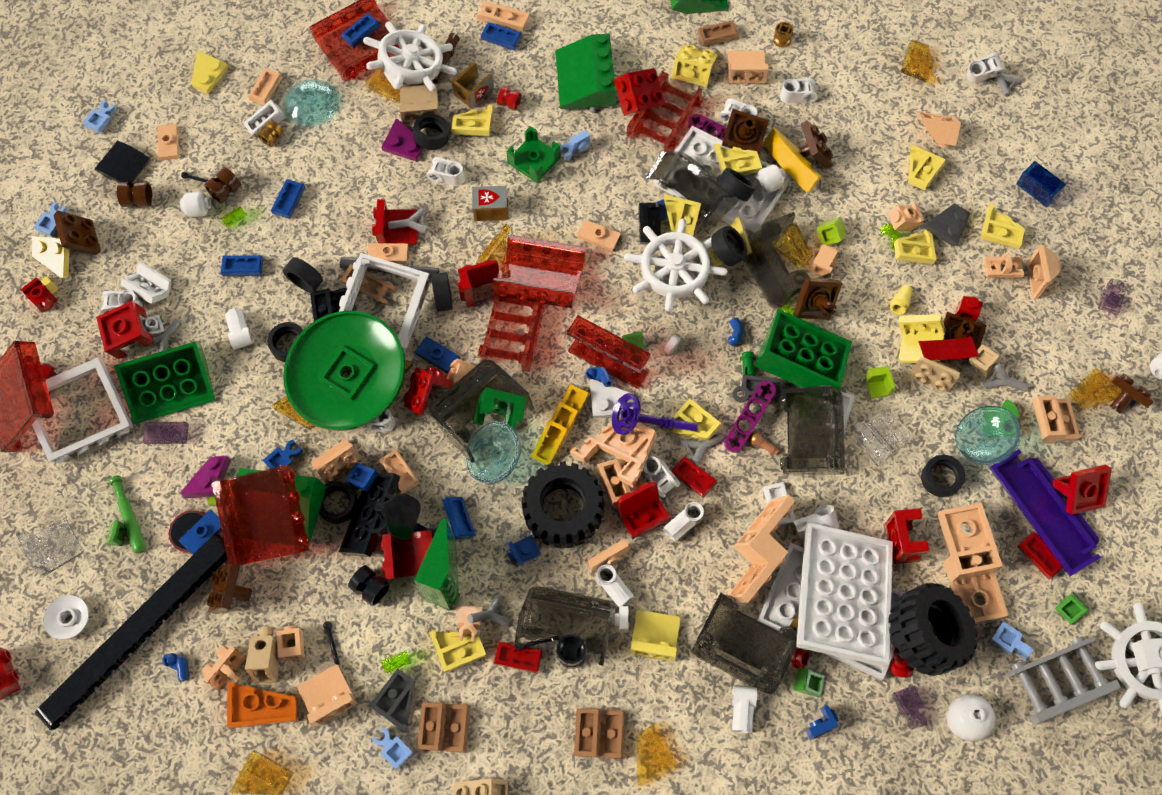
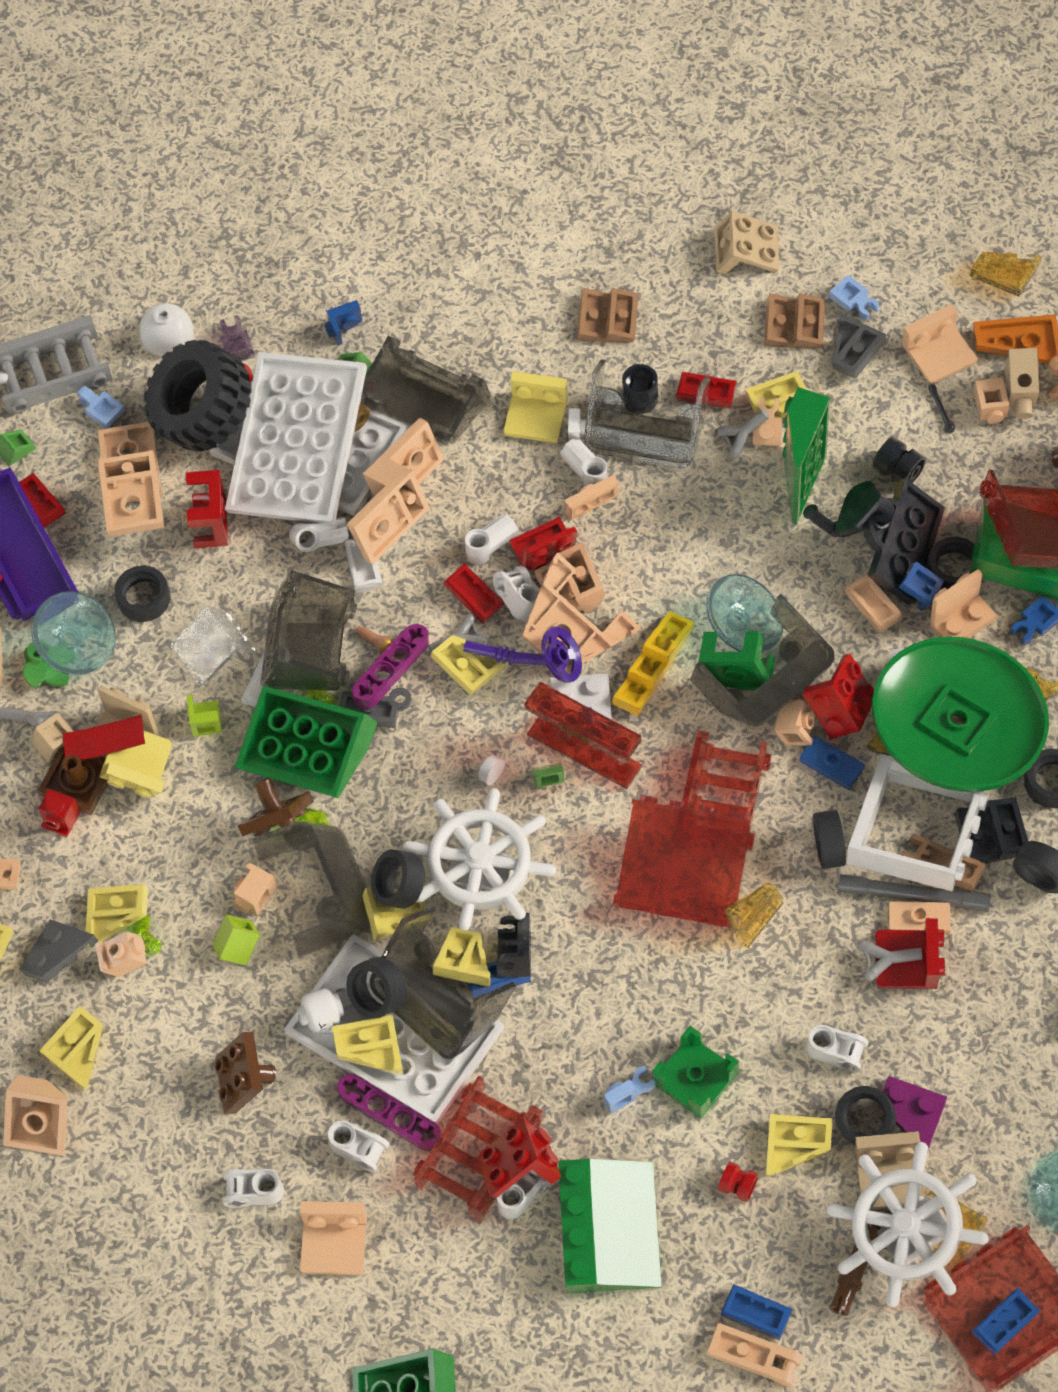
camera: 175 degrees left, 5 degrees down
(395, 661) = (858, 385): clear neon green pin -> none
(404, 557) = (833, 489): red bracket -> none
(458, 518) = (788, 543): blue plate -> none
(475, 276) = (781, 859): red bracket -> none
(480, 91) = (807, 1177): pearl gold piece -> none
(490, 203) = (763, 985): piece -> none
(523, 550) = (703, 507): blue bracket -> none
(536, 642) = (663, 412): black hinge -> none
(556, 478) = (649, 582): black tyre -> none
(599, 235) = (593, 943): light nougat plate -> none
(653, 755) = (544, 295): clear yellow wing -> none
(694, 65) = (419, 1249): light yellow bracket -> none
(717, 33) = (376, 1310): medium nougat plate -> none
(738, 333) = (393, 788): blue arm -> none
(743, 708) = (434, 341): white piece -> none
(745, 131) = (351, 1091): reddish brown plate -> none
(748, 363) = (384, 746): green pin -> none
(783, 34) = (267, 1305): pearl gold wheel -> none
(791, 160) = (287, 1057): yellow slope -> none
(793, 246) = (300, 898): clear yellow wing -> none
(901, 301) = (150, 832): light yellow cone -> none
(918, 62) = (43, 1243): clear yellow wing -> none

